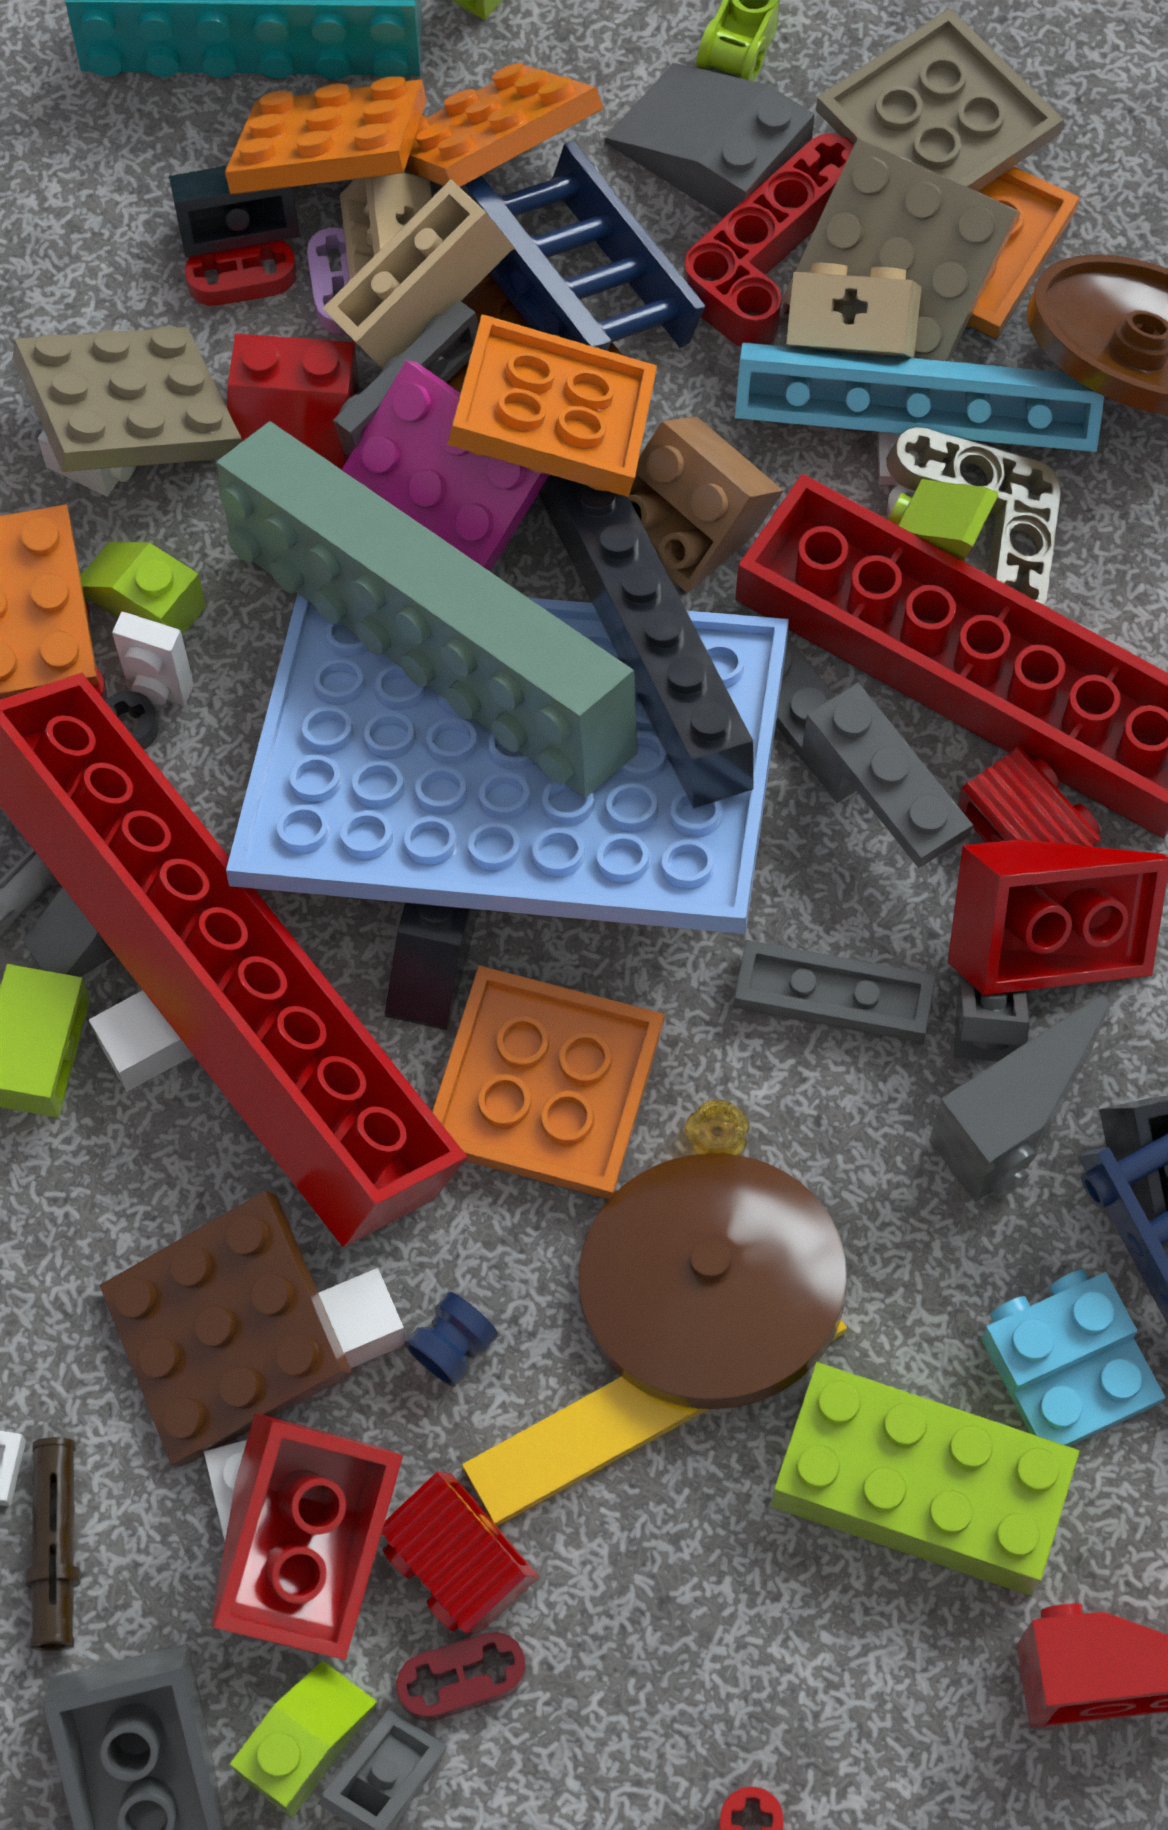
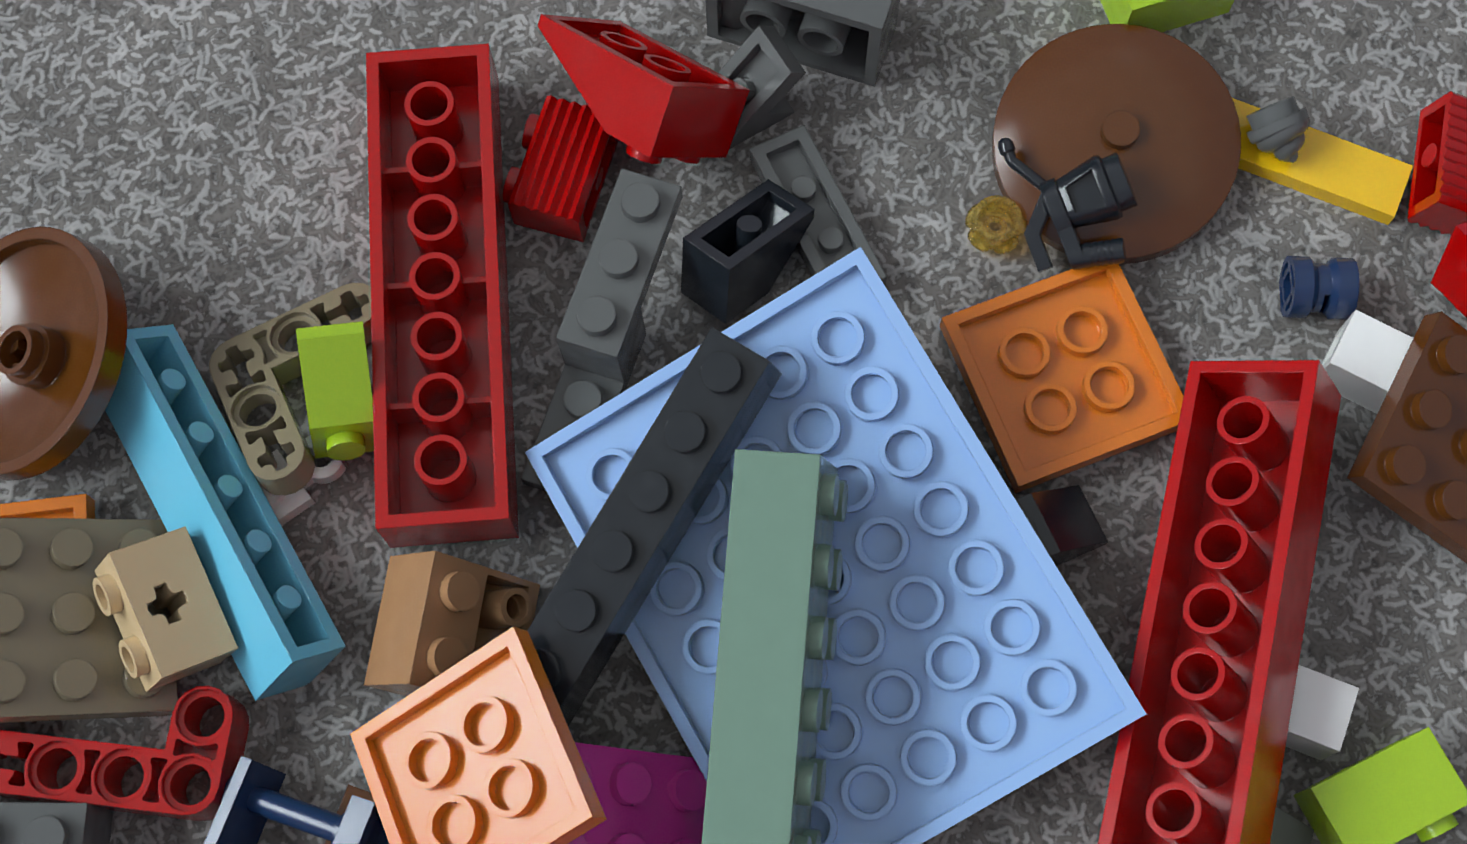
camera: 125 degrees left, 5 degrees up
(615, 1414) = (1279, 129): none -> dark grey plate
(677, 1176) = (1082, 197): none -> black piece
(843, 901) = (743, 250): none -> black slope

